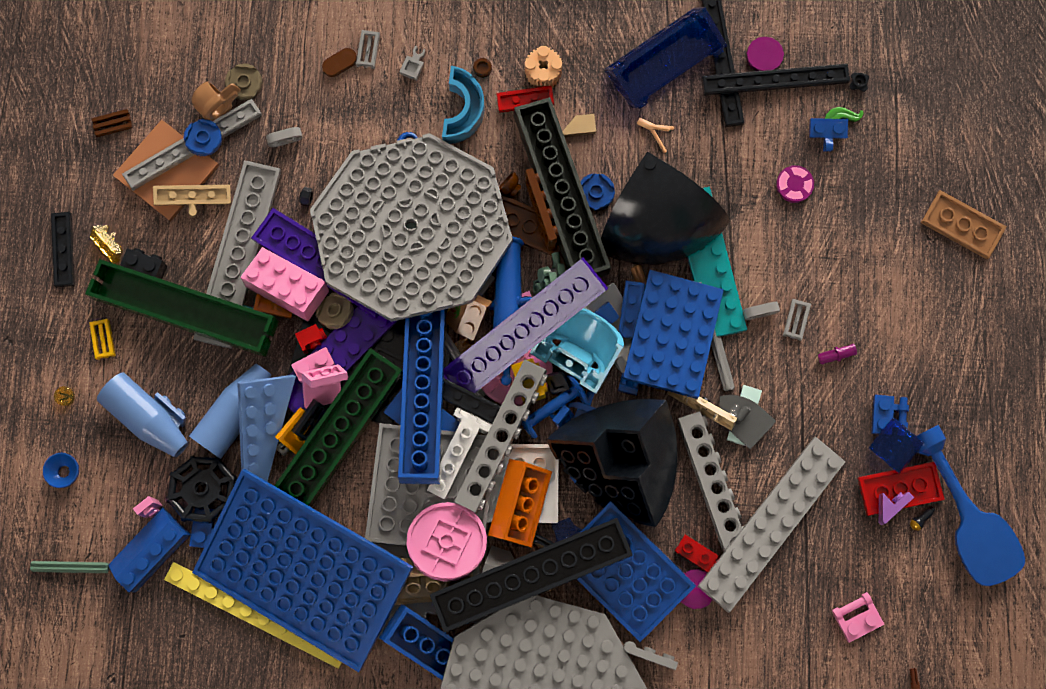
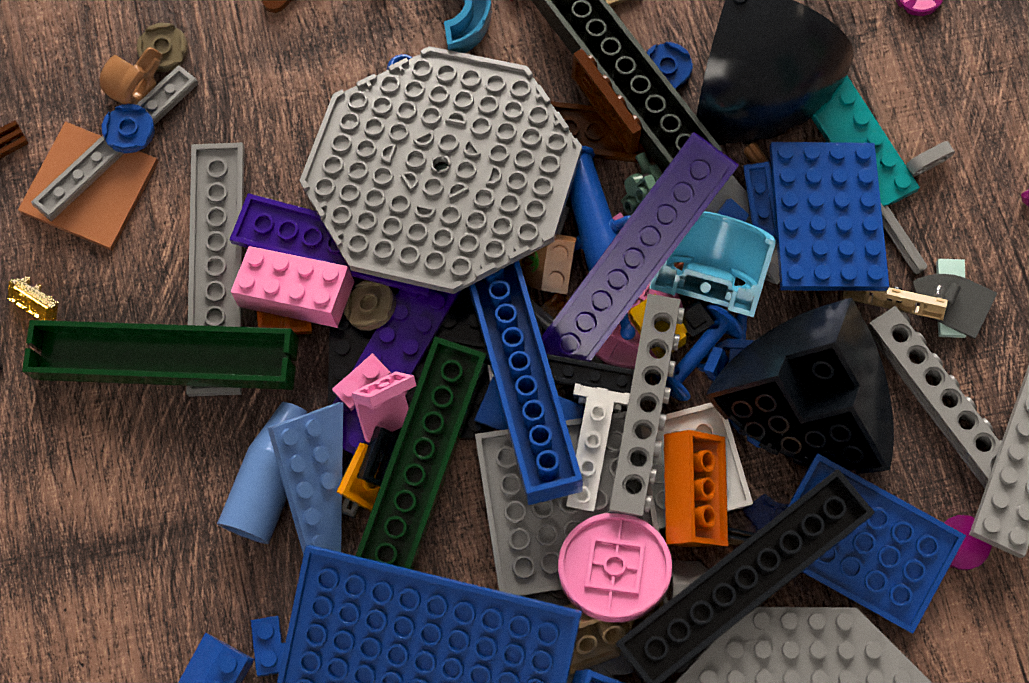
camera: 15 degrees left, 5 degrees down
(54, 464) = (37, 615): blue piece -> none
(64, 396) = (27, 519): clear yellow tile -> none
(105, 354) = (69, 448): yellow tile -> none
(143, 263) = (87, 309): black brick -> none
(147, 418) = (154, 516): medium blue piece -> none
(148, 507) = (186, 637): bright pink plate -> none
(189, 488) = (237, 597): black plate -> none
(191, 195) = (133, 207): tan plate -> none
(284, 137) = (236, 101): light grey beam -> none
(306, 196) = (287, 169): black tile -> none
(310, 338) = (347, 348): red brick -> none
(510, 185) = (554, 84): reddish brown piece -> none
(628, 387) = (787, 300): blue tile -> none
(649, 654) = (931, 648): light grey plate -> none
(696, 553) = (949, 495): red plate -> none
(792, 334) = (979, 178): light grey tile -> none

